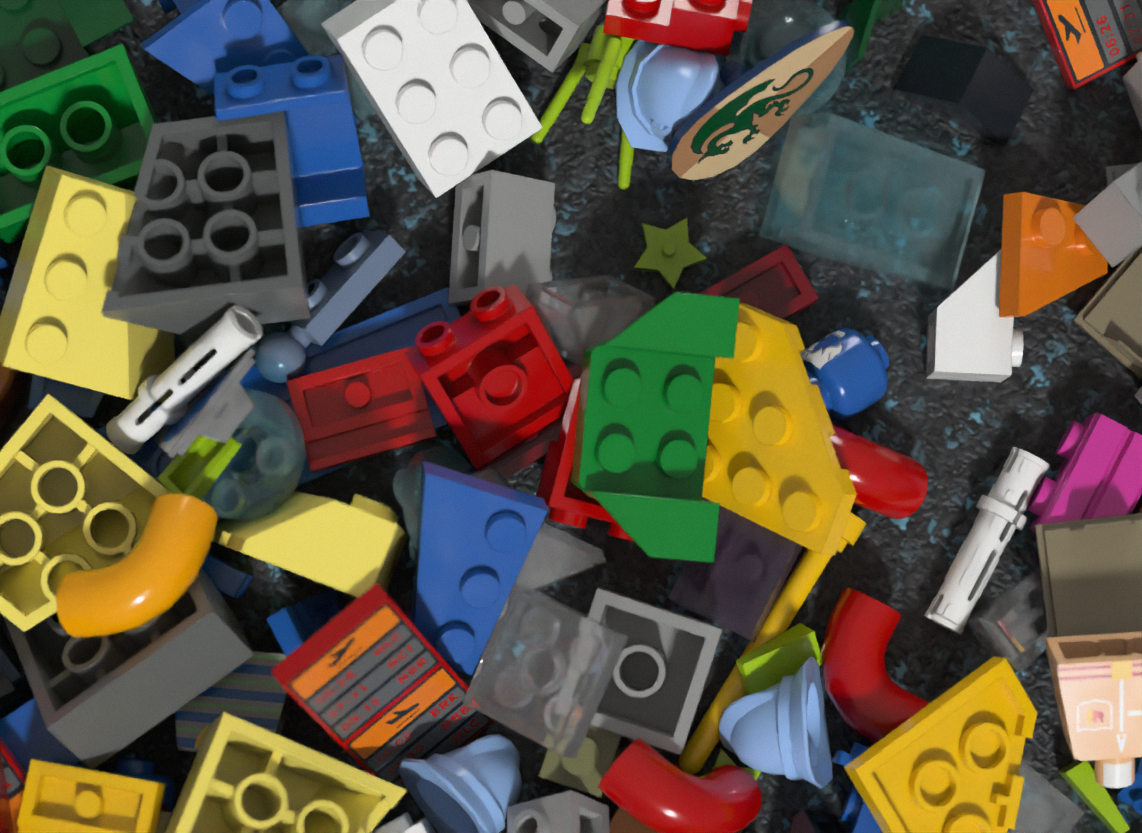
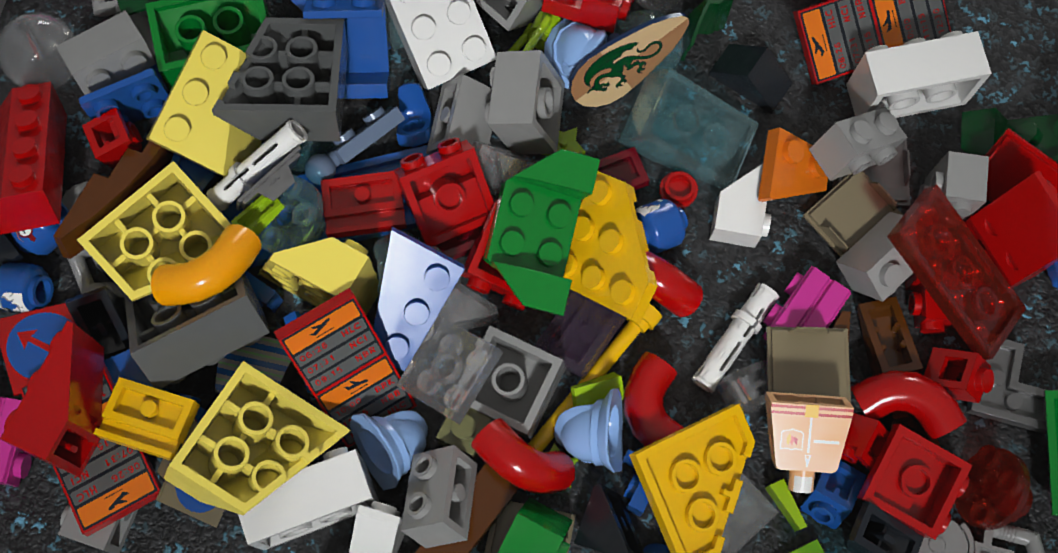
camera: 10 degrees right, 10 degrees down
(423, 236) = (418, 116): none -> blue hair
(600, 200) = (525, 102): none -> light grey brick
(867, 303) = (679, 188): none -> red plate

